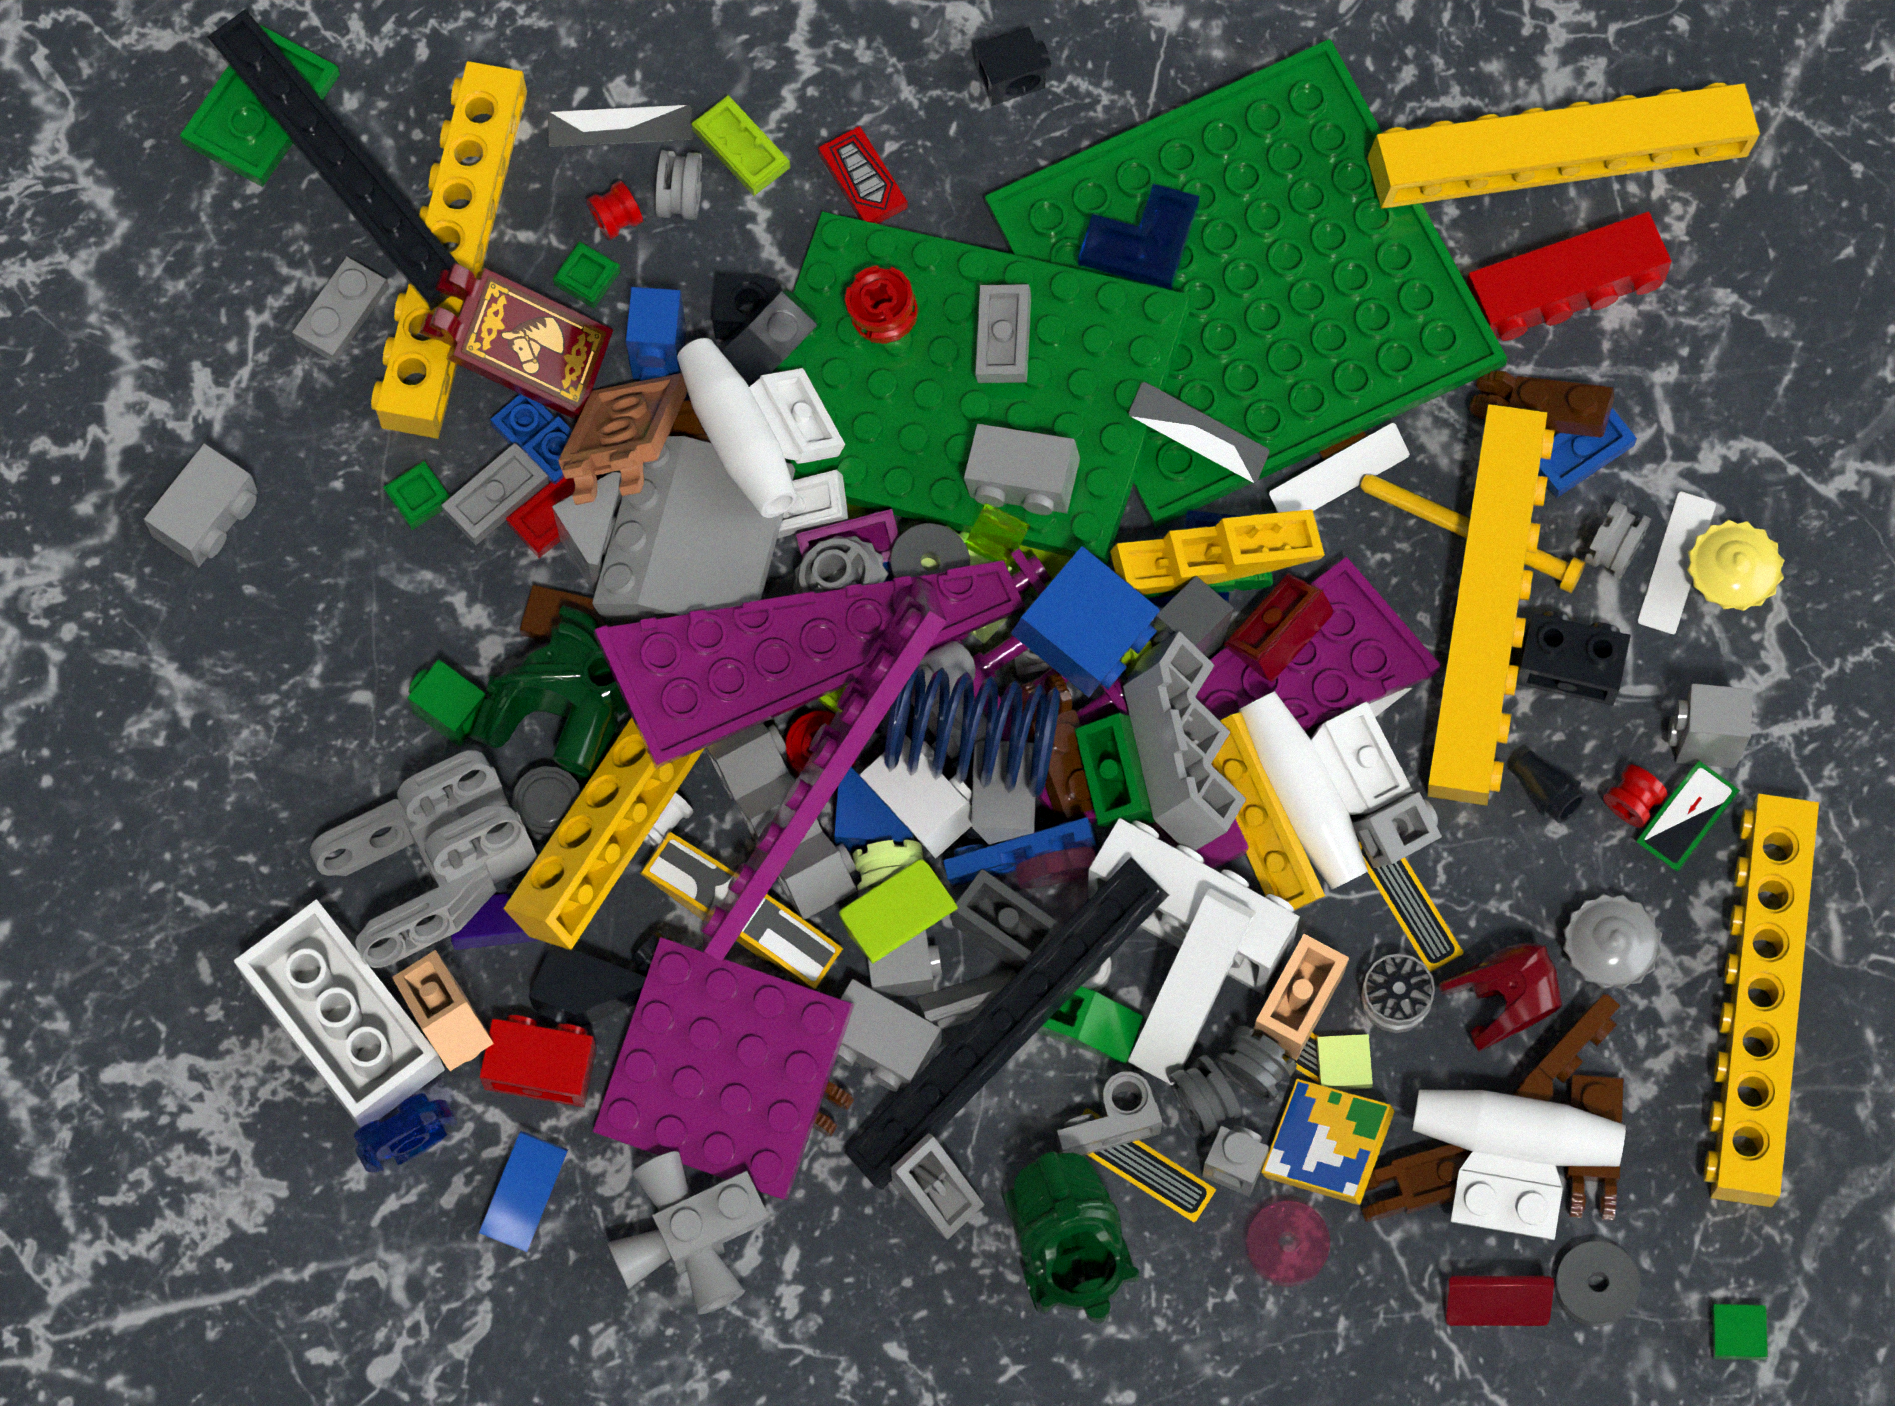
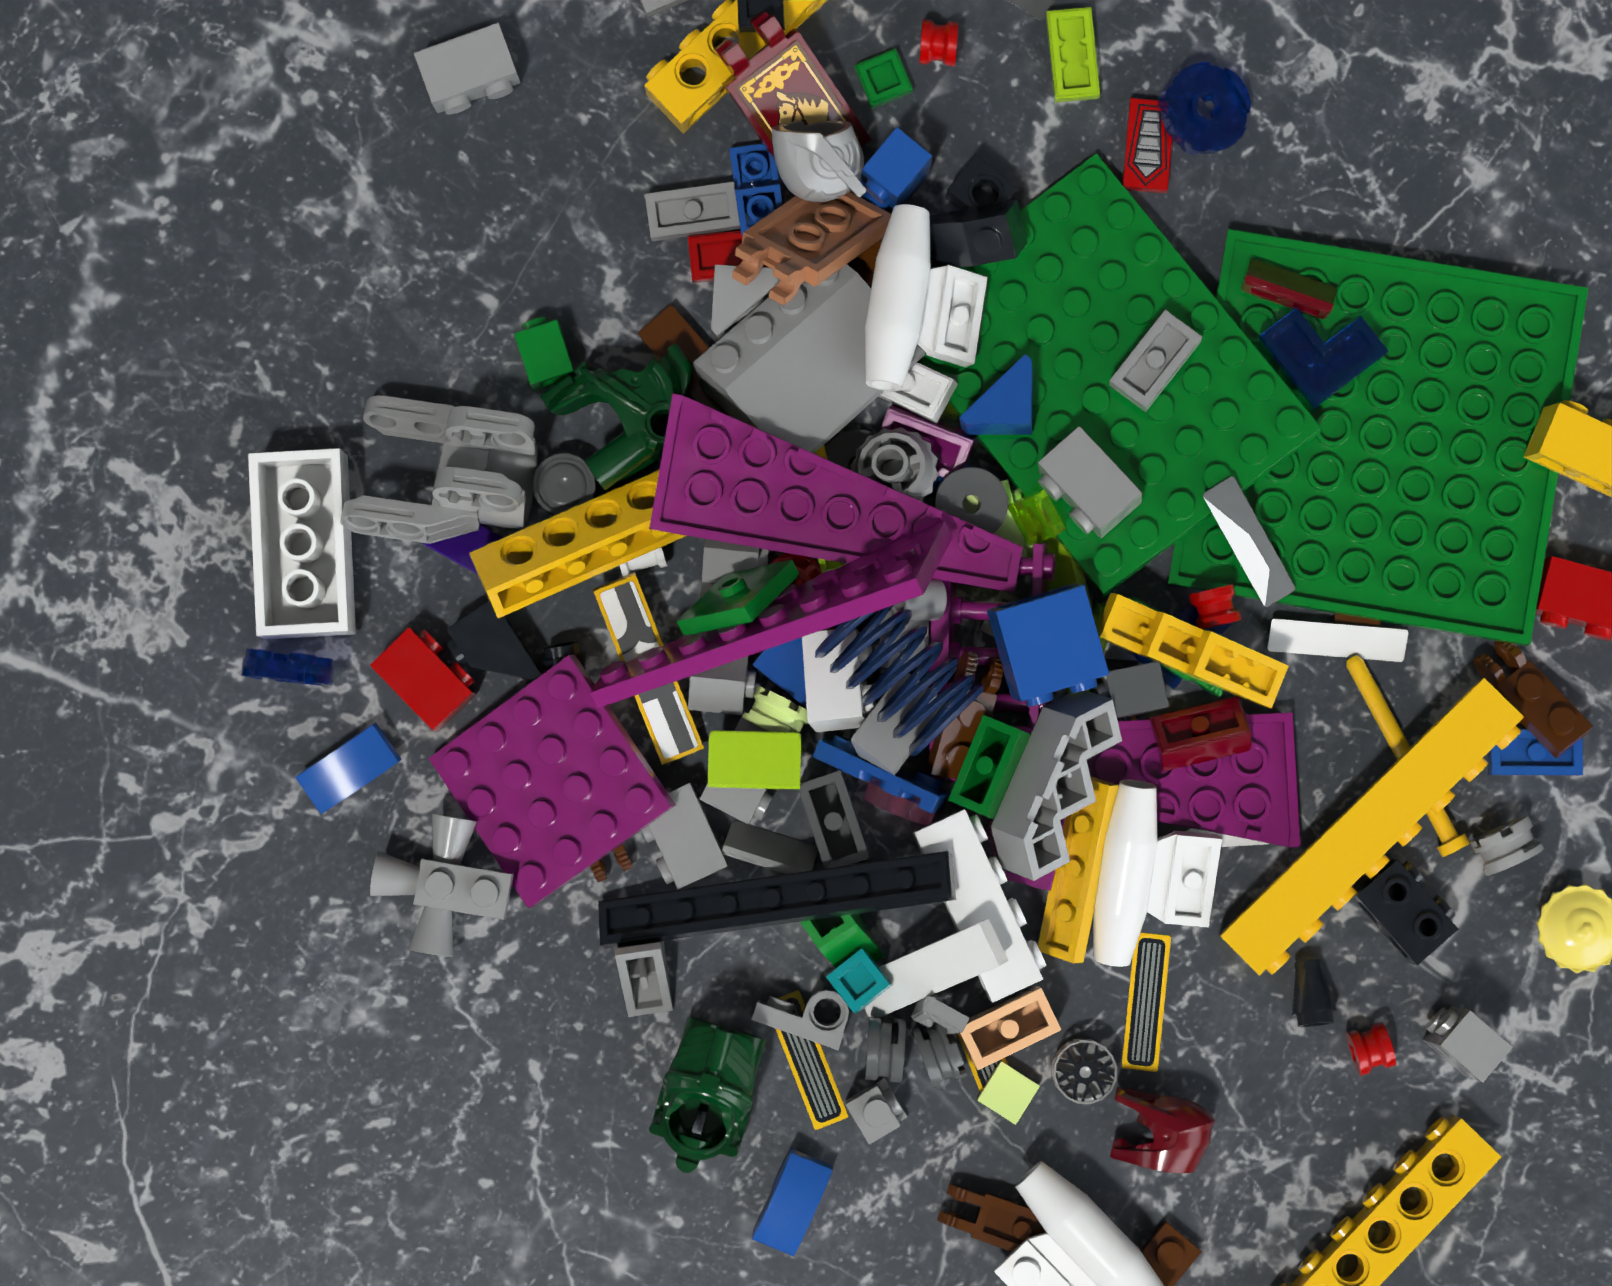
camera: 40 degrees right, 15 degrees up
(417, 495) = (635, 170): green tile -> none
(442, 1010) = (375, 596): light nougat brick -> none
(582, 365) = (818, 159): none -> light grey helmet
(685, 183) = (999, 63): light grey wheel -> none
(780, 772) = (738, 597): none -> green plate
(881, 133) = (1180, 112): none -> clear blue plate
(881, 304) = (1082, 268): red wheel -> none
(899, 459) = (1005, 406): none -> blue slope
(1012, 65) = (1327, 134): black brick -> none
(1075, 208) = (1289, 289): none -> slope
(1135, 1045) = (859, 981): none -> teal plate
(1210, 504) = (1215, 607): none -> red wheel
(1222, 1295) = (792, 1202): none -> blue slope
(1229, 1018) = (931, 1010): none -> light grey tile
(1292, 1220) = (875, 1216): clear pink piece -> none
(1328, 1141) = (951, 1145): tile -> none
(1380, 838) = (1182, 963): light grey brick -> none
(1563, 1057) = (1169, 1204): reddish brown hinge -> none
(1612, 941) = (1269, 1148): light grey piece -> none
(1670, 577) = (1533, 891): white sticker -> none
(1688, 816) = (1399, 1090): slope -> none

